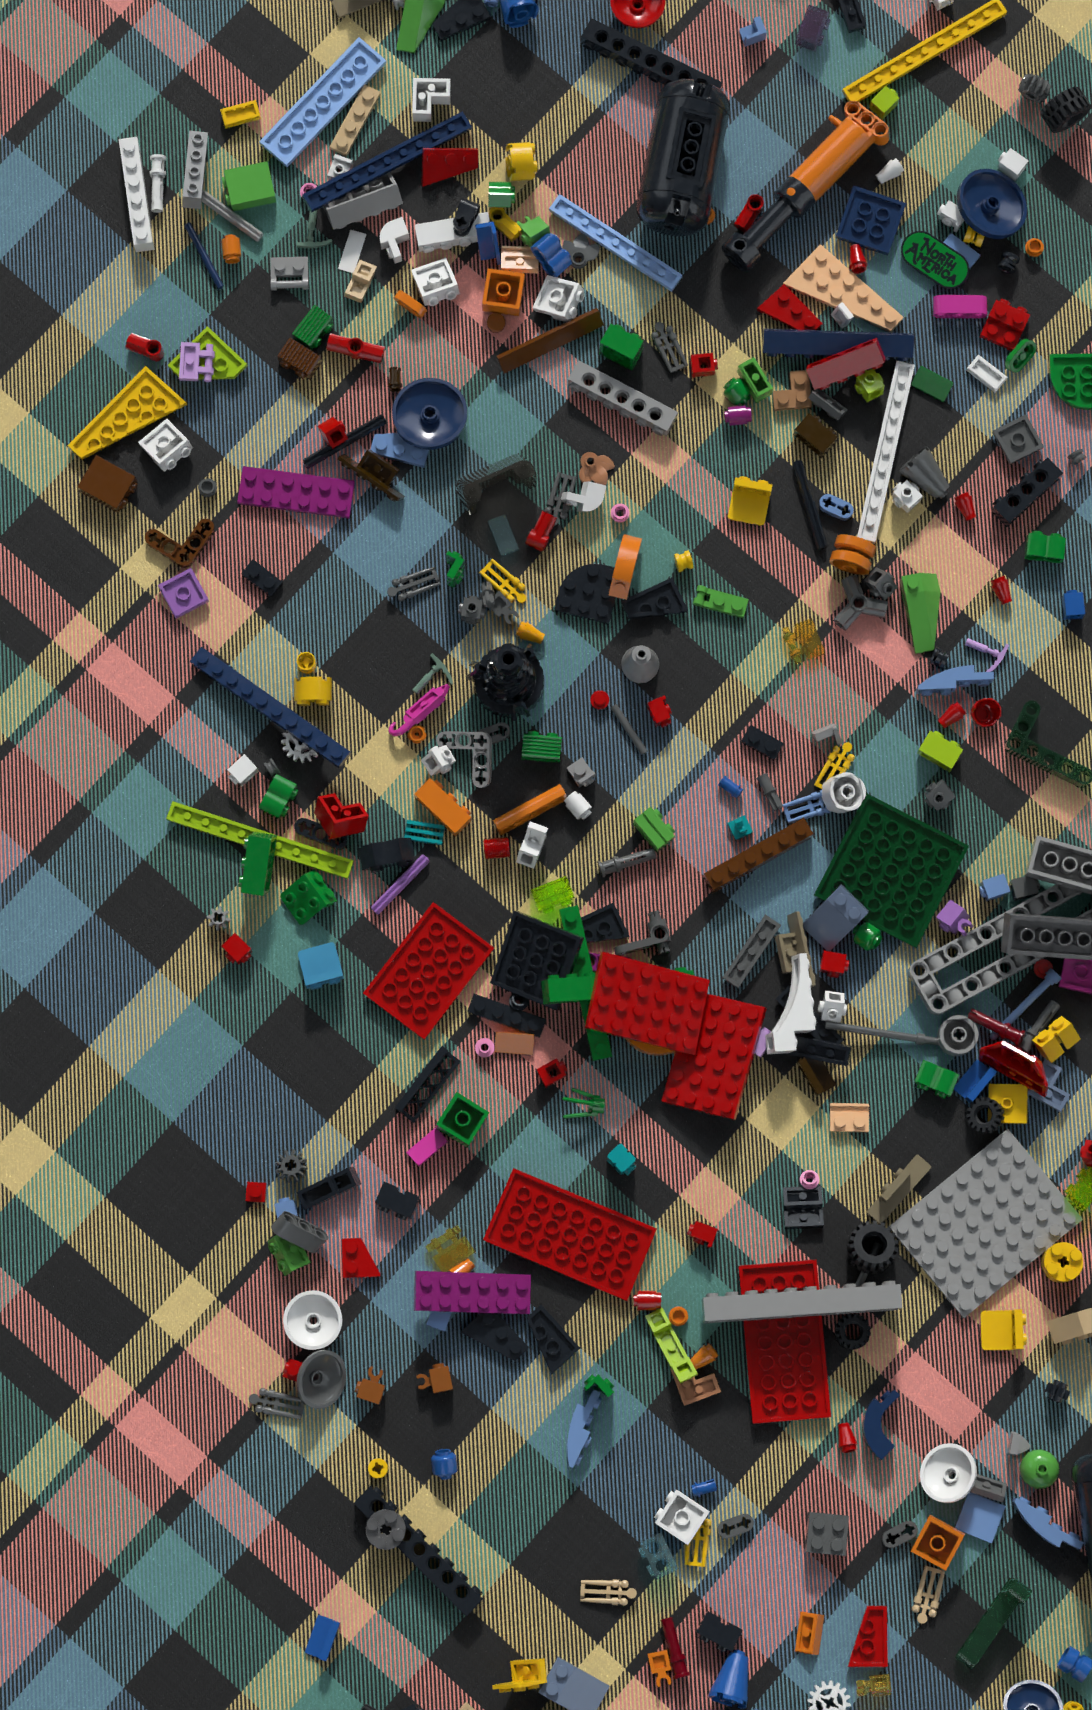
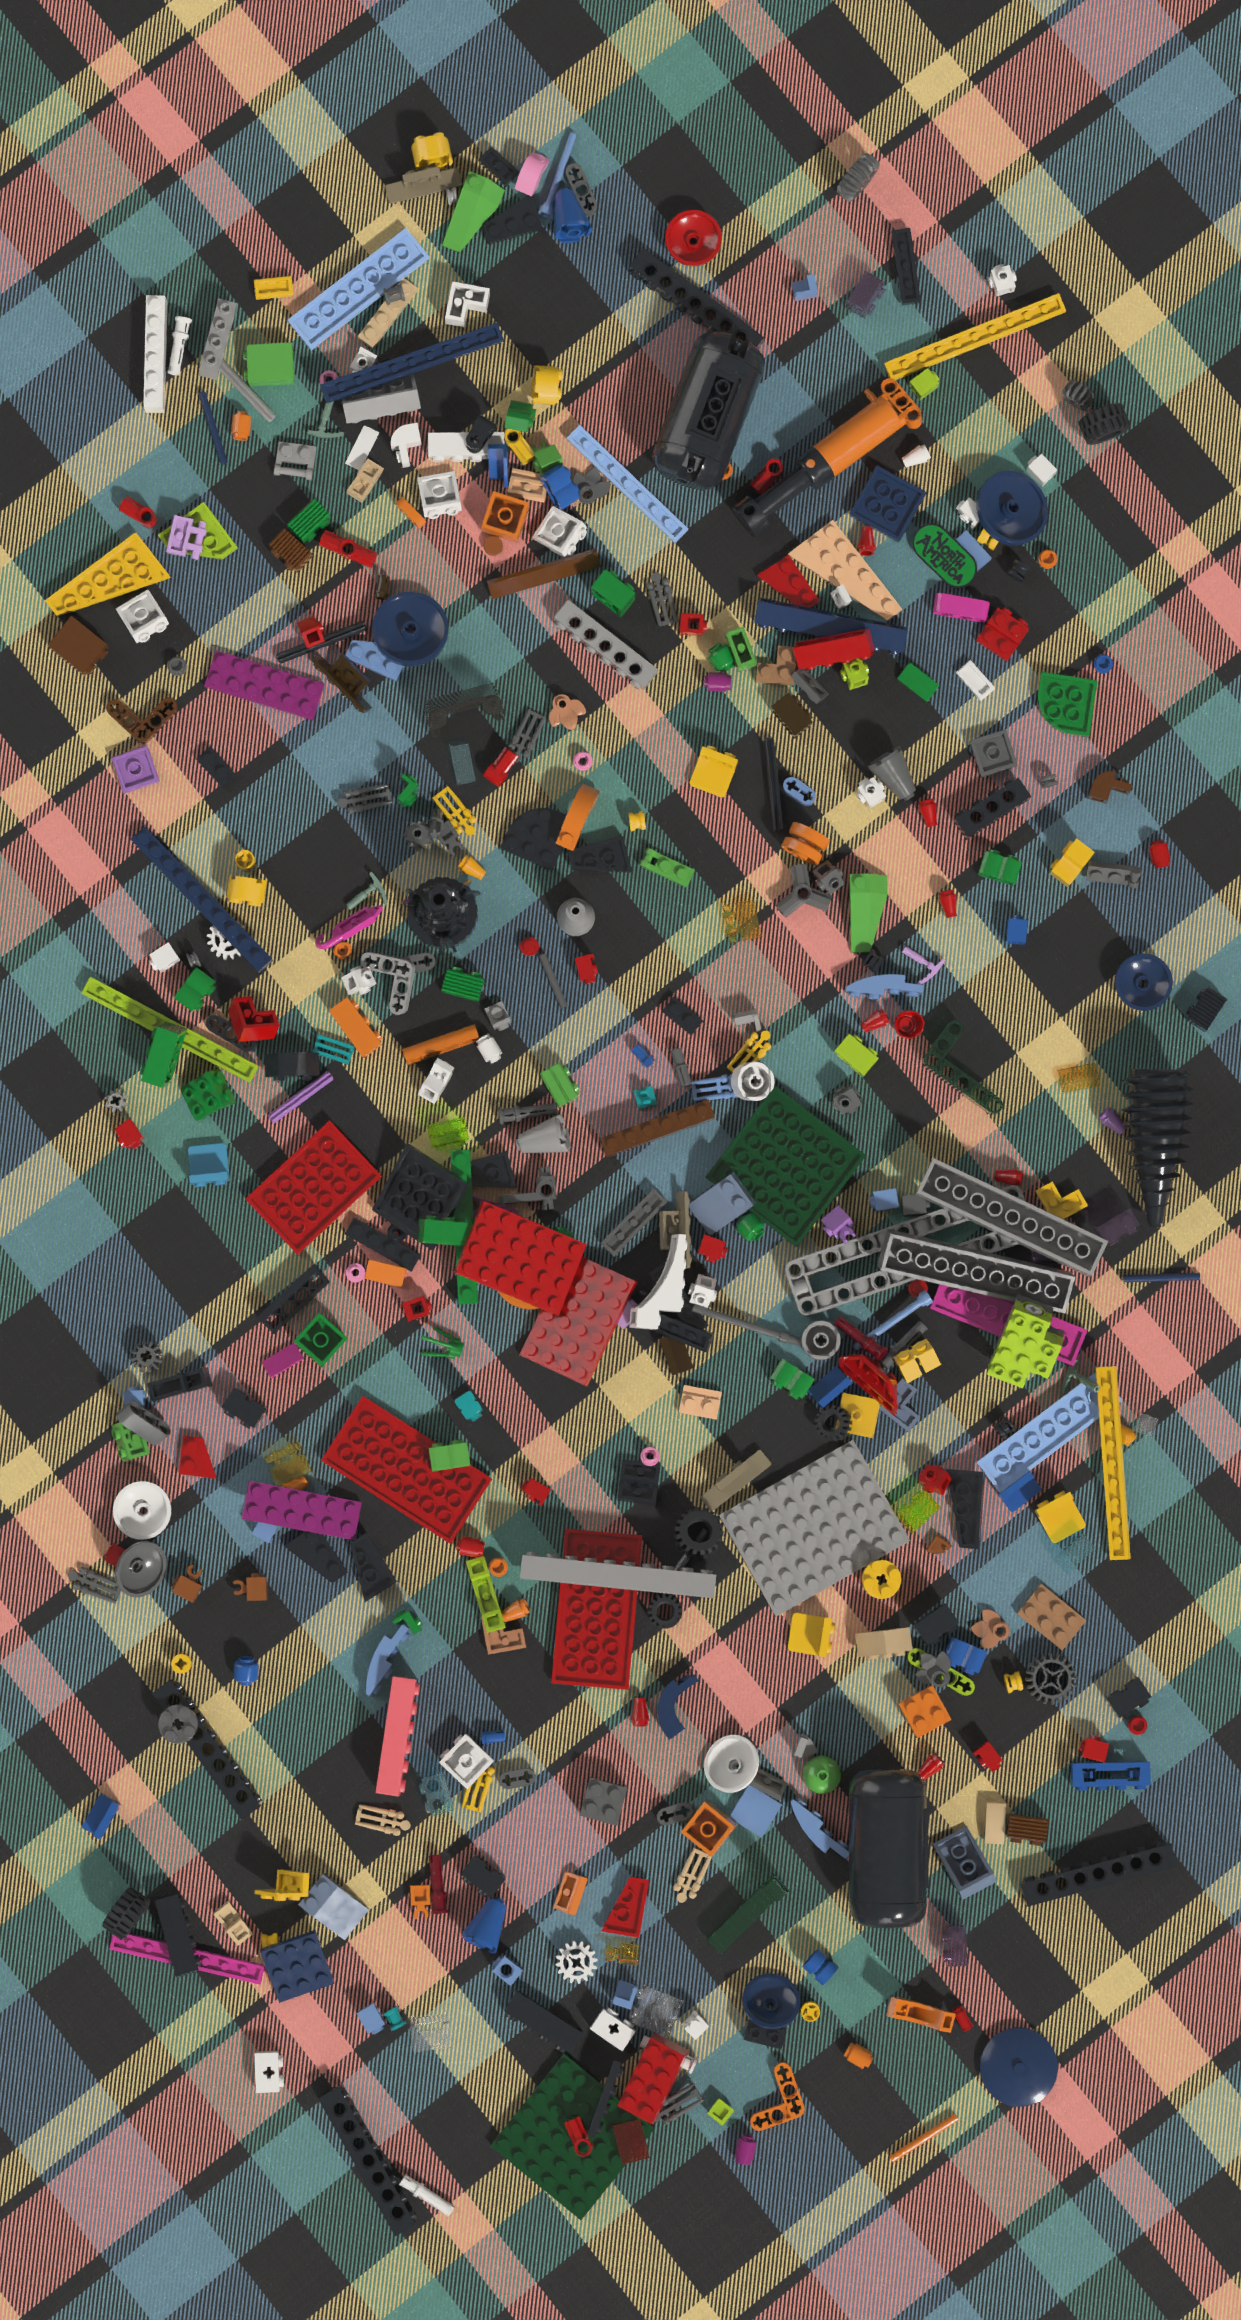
camera: 10 degrees right, 5 degrees up
(256, 1192) = (108, 1376): red plate -> none
(358, 100) = (400, 296): none -> dark grey bush
(447, 162) = (472, 373): red wing -> none
(496, 848) = (401, 1077): red piece -> none
(589, 499) = (555, 741): white brick -> none
(608, 1503) = (396, 1736): none -> coral brick
(610, 1213) = (449, 1456): none -> bright green brick
(649, 882) = (545, 1137): none -> light grey cone
(885, 451) = (858, 743): white plate -> none
(1020, 355) = (1012, 668): green plate -> none
(1057, 1391) = (852, 1703): black gear -> none

